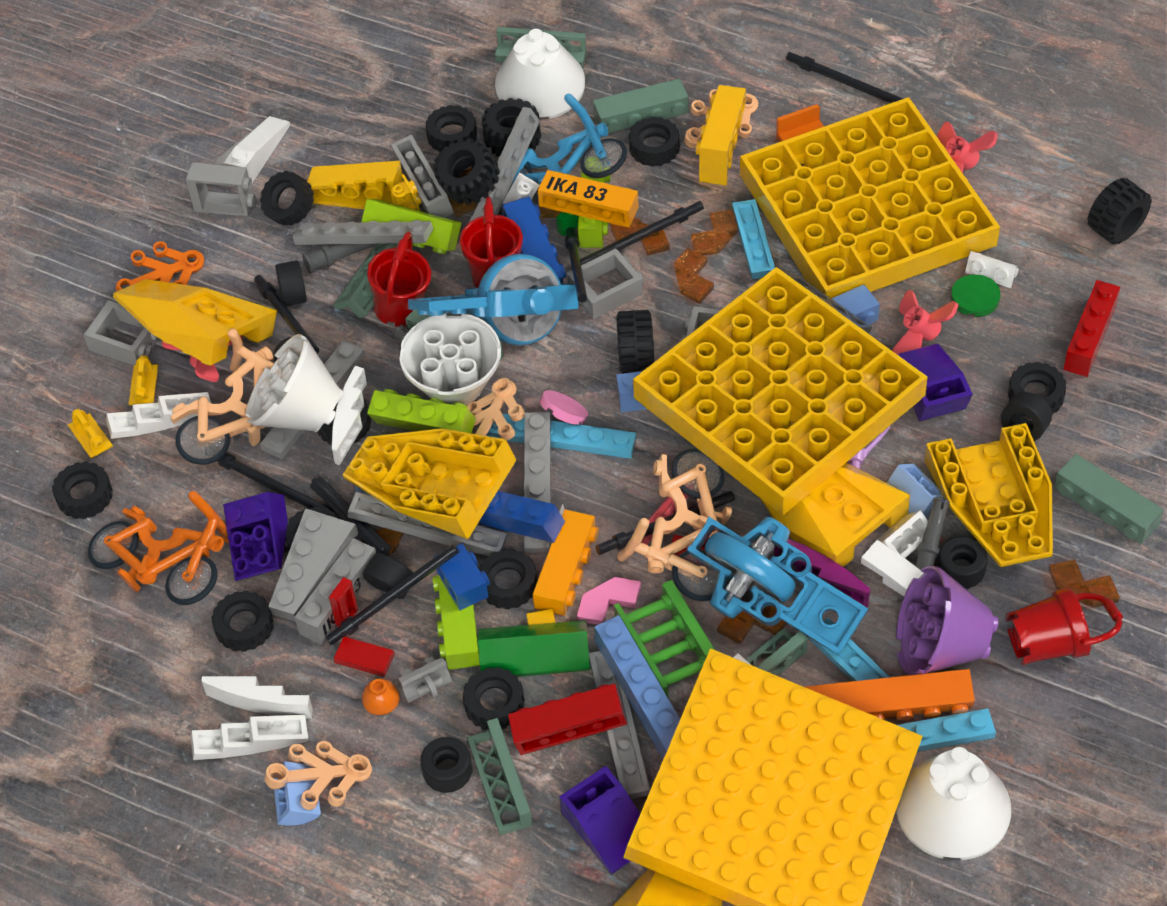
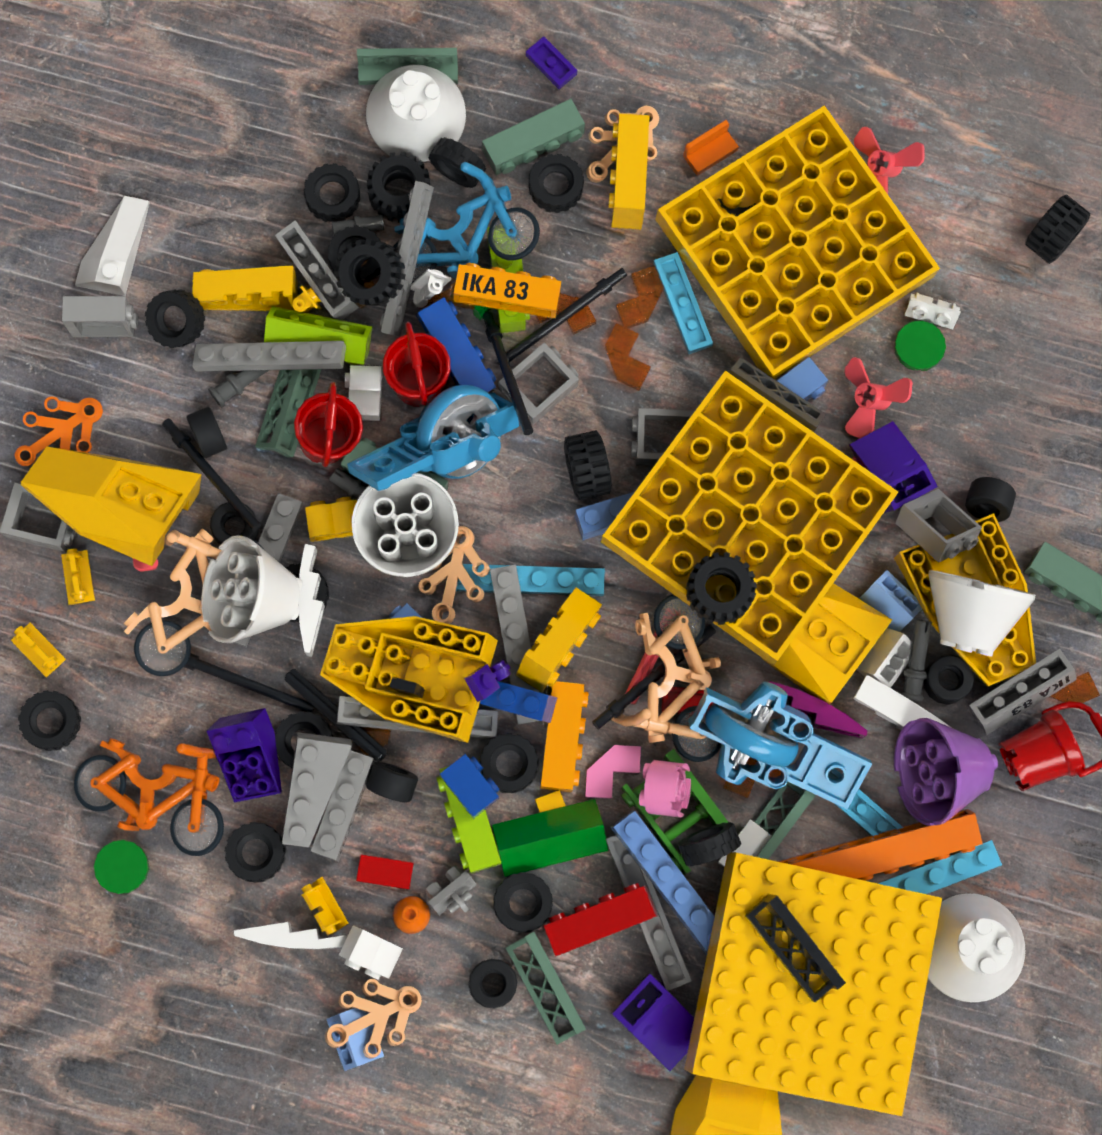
camera: 20 degrees left, 25 degrees up
(112, 618) = (121, 867): none -> green tile
(150, 416) = (105, 615): white slope -> none
(257, 736) = (292, 982): white slope -> none
(297, 676) = (330, 914): none -> yellow hinge
(330, 714) = (369, 952): none -> white brick
(343, 601) = (355, 825): red tile -> none
(351, 624) = (367, 842): black bar -> none
(383, 366) = (330, 520): none -> yellow brick
(418, 414) = (375, 585): lime brick -> none
(419, 481) = (407, 687): none -> black tile
(445, 272) = (365, 390): none -> white brick
(496, 486) = (485, 679): none -> dark purple plate
(556, 111) = (448, 157): none -> black tyre
(564, 407) = (527, 552): bright pink tile -> none
(577, 473) = (559, 638): none -> yellow wedge
(654, 603) = (665, 788): none -> bright pink brick
(669, 58) = (551, 62): none -> dark purple plate
(685, 654) = (709, 844): none -> black tyre
(736, 441) = (736, 572): none -> black tyre
(764, 735) = (803, 942): none -> black fence
(808, 64) = (703, 52): black bar -> none
(969, 427) = (937, 504): none -> light grey window
(992, 477) = (975, 612): none -> white cone
(1036, 575) = (1023, 691): none -> light grey brick
(1042, 374) = (998, 440): black tyre -> none
(1091, 328) = (1042, 377): red brick -> none

